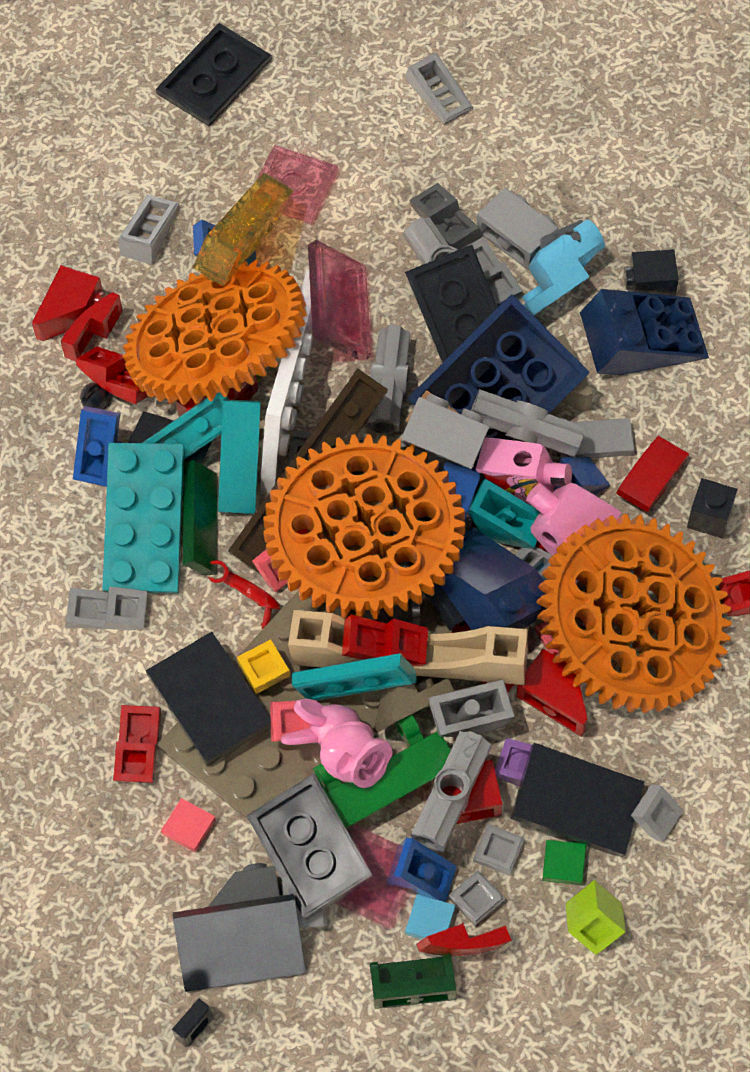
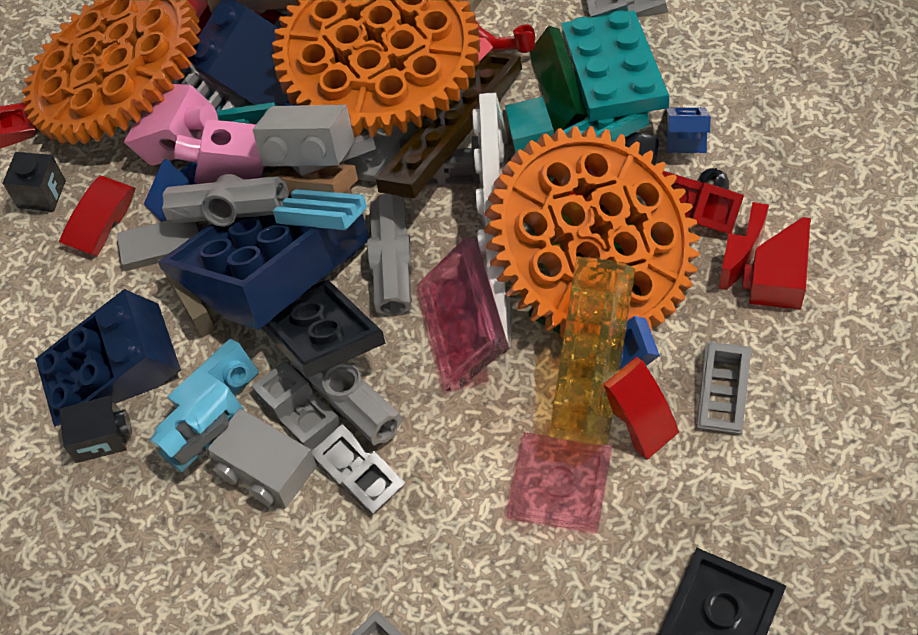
camera: 175 degrees right, 5 degrees down
(218, 202) = (642, 406): none -> red slope
(453, 368) = (320, 209): none -> medium azure tile

